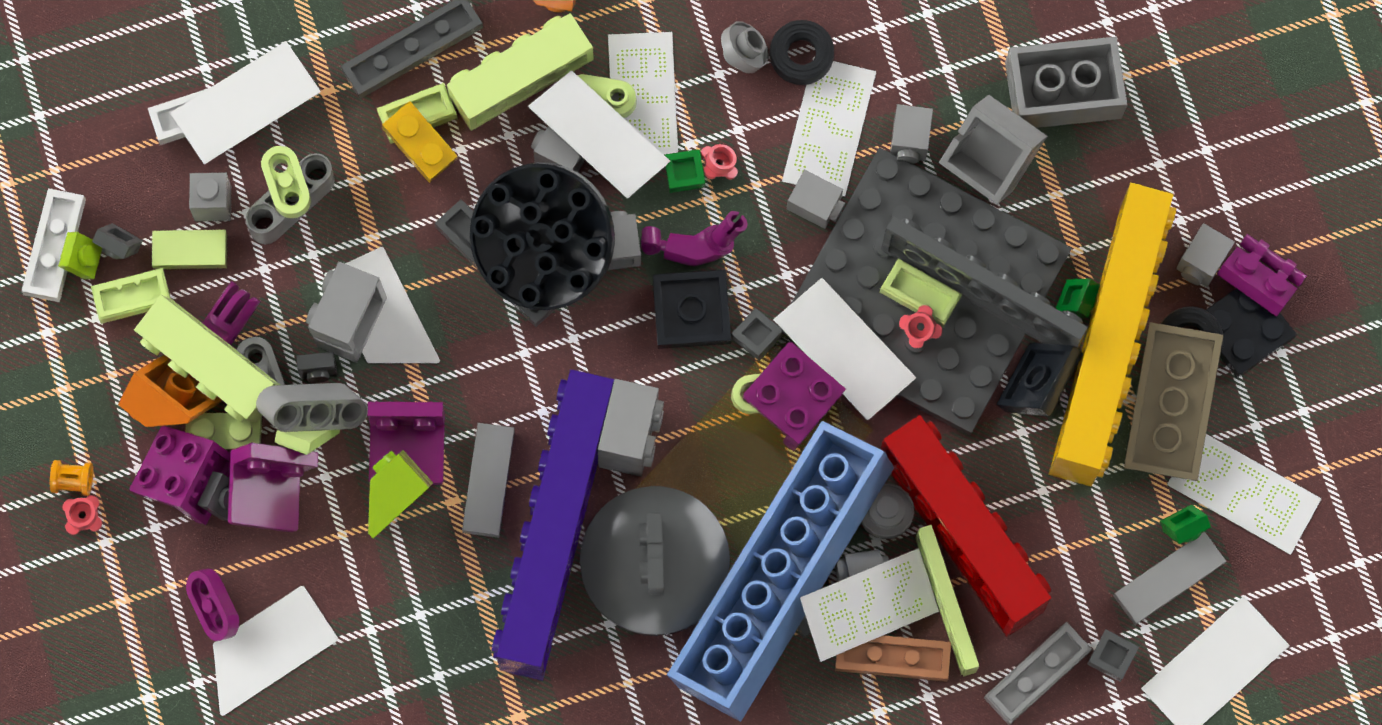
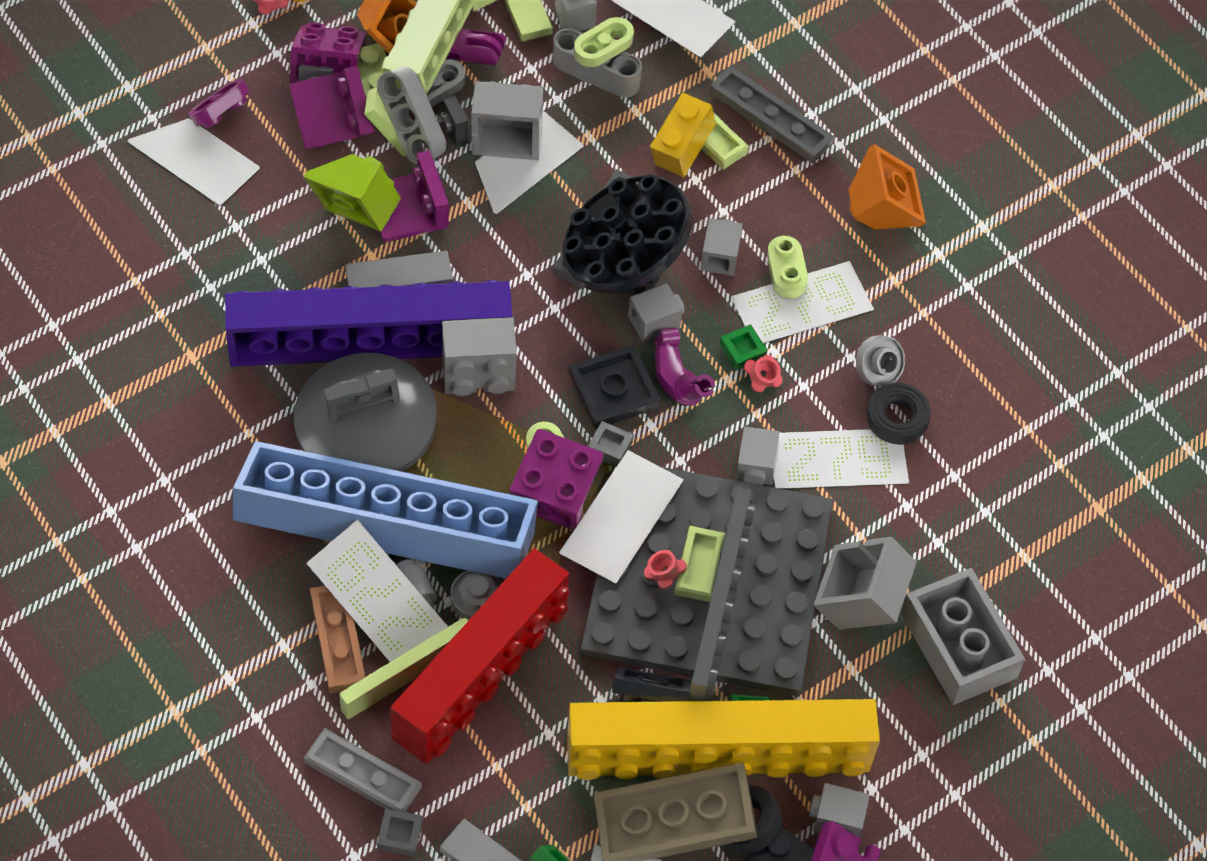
camera: 70 degrees right, 15 degrees down
(519, 71) = (782, 197): yellowish green brick -> none
(599, 134) = (746, 264): white sticker -> none
(911, 133) = (856, 519): light grey brick -> none

